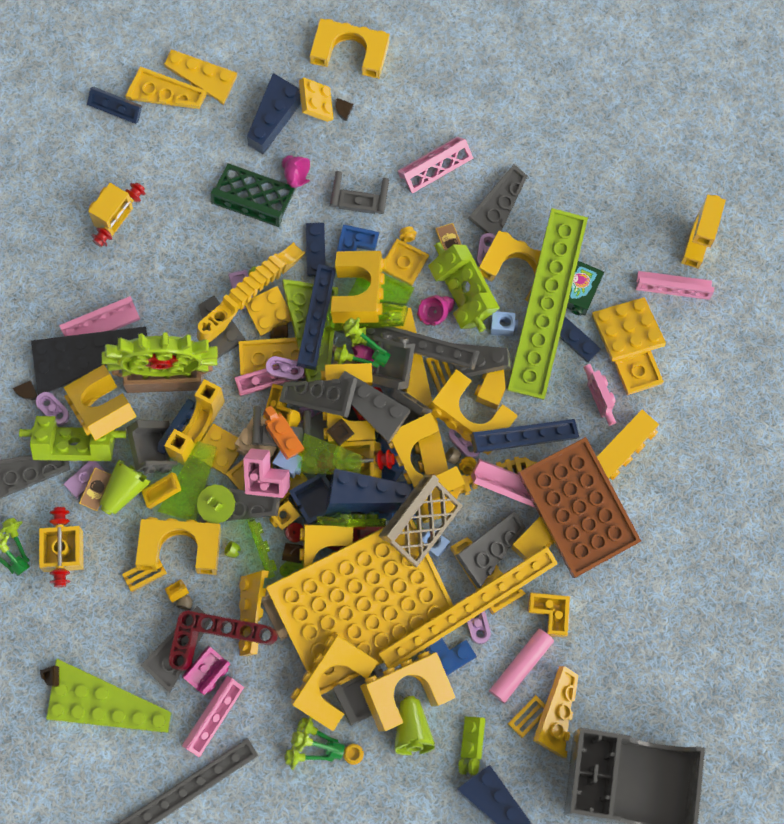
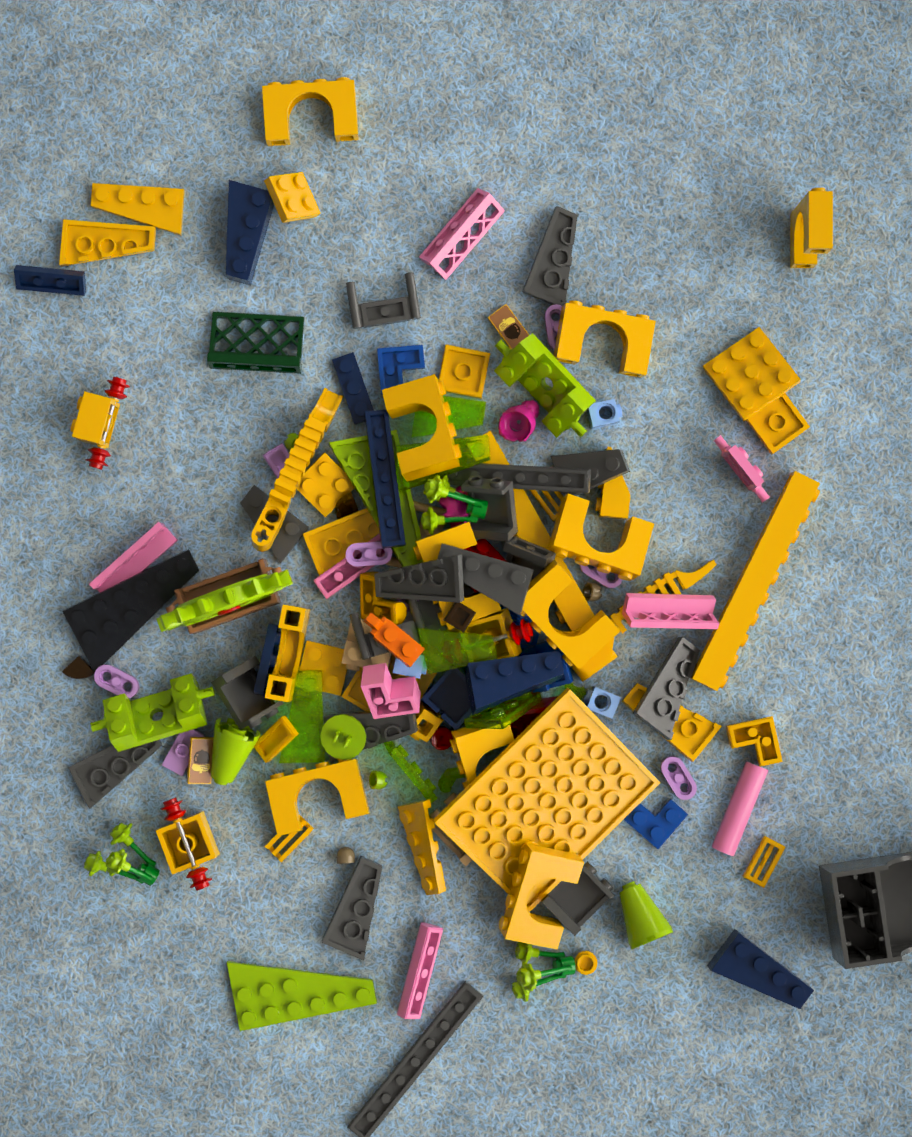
camera: 15 degrees left, 15 degrees up
(50, 676) = (228, 984): dark brown tile -> none
(102, 418) = (180, 688): yellow arch -> none
(176, 590) = (332, 846): yellow tile -> none
(206, 670) = (396, 924): dark pink bracket -> none
(216, 629) = (395, 883): dark red beam -> none
(291, 552) = (446, 762): dark brown tile -> none
(296, 170) = (297, 297): dark pink piece -> none
(343, 108) = (328, 195): dark brown tile -> none
(380, 690) = (596, 891): yellow arch -> none
(406, 513) = (568, 680): fence -> none
(407, 234) = (457, 336): yellow plate -> none
(467, 465) = (613, 598): yellow plate -> none
(468, 608) = (664, 767): yellow plate -> none
(471, 745) = (711, 913): lime hinge -> none
(524, 435) = (669, 548): dark blue plate -> none
(547, 304) = (650, 375): lime plate -> none
(554, 722) = (794, 861): yellow wing -> none
(578, 341) = (689, 402): dark blue plate -> none
(579, 507) = (756, 613): dark orange plate -> none
(583, 288) = (677, 340): panel -> none
(674, 285) = (790, 299): bright pink fence -> none

